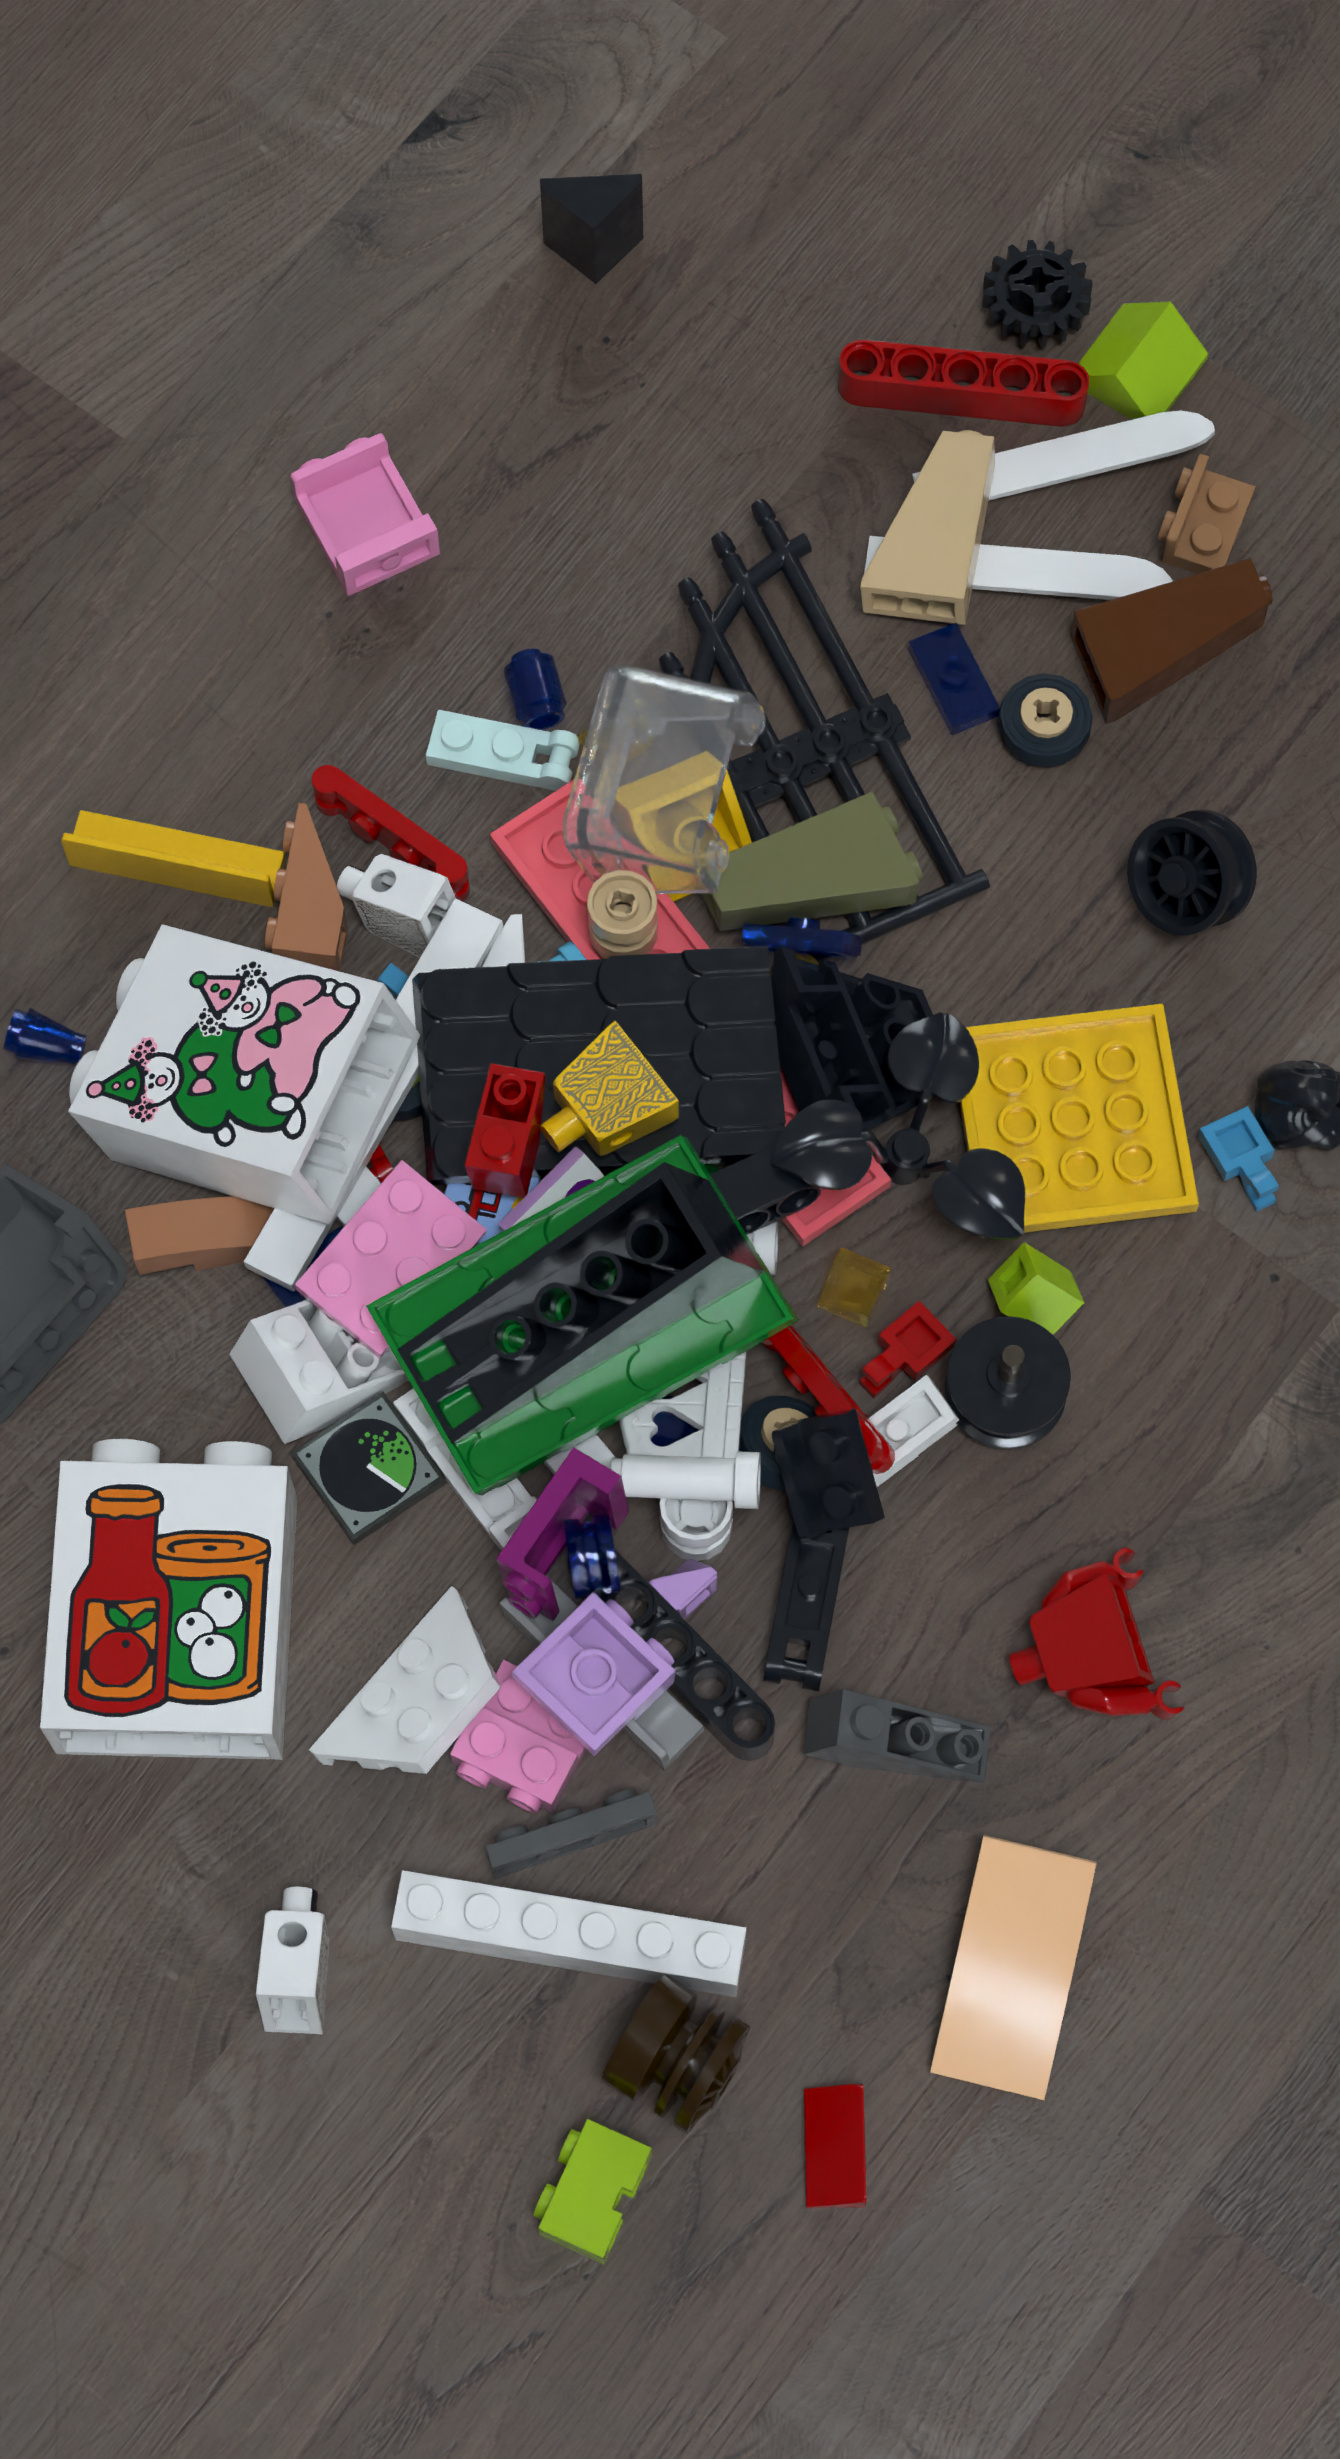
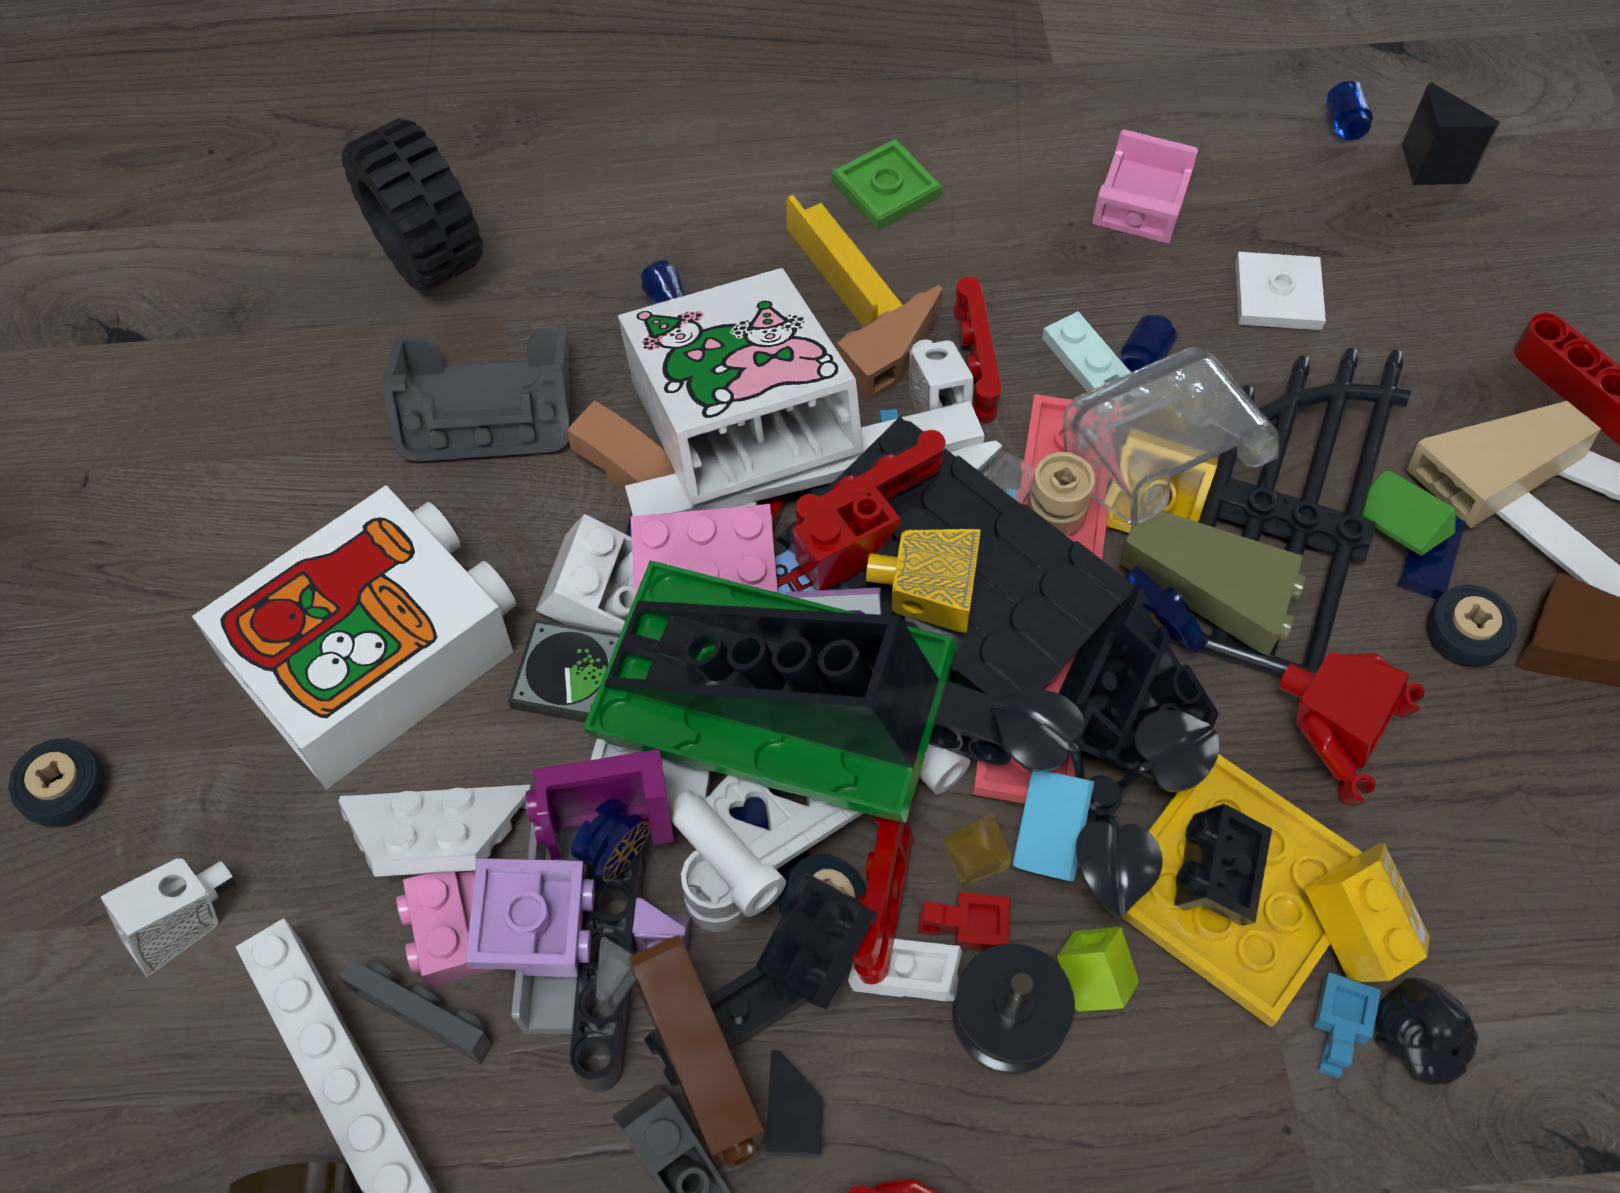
camera: 45 degrees right, 10 degrees down
(72, 1993) = (65, 798): none -> black wheel
(114, 729) = (886, 184): none -> bright green tile
(468, 252) = (1349, 110): none -> clear blue brick
(480, 1040) = (889, 475): none -> red plate
(559, 935) = (1012, 475): none -> clear slope
(589, 519) = (1279, 291): none -> white plate
(706, 1649) = (614, 976): none -> clear slope
(826, 1640) = (697, 1052): none -> reddish brown slope
(899, 1212) = (1051, 823): none -> medium azure slope
(908, 662) = (1409, 513): none -> bright green slope
(924, 1618) = (793, 1112): none -> black tile
(1025, 895) = (1348, 711): none -> red torso
(1051, 1118) = (1224, 864): none -> black bracket
(1192, 872) = (1489, 797): black wheel -> none
(1192, 1055) = (1369, 917): none -> yellow slope

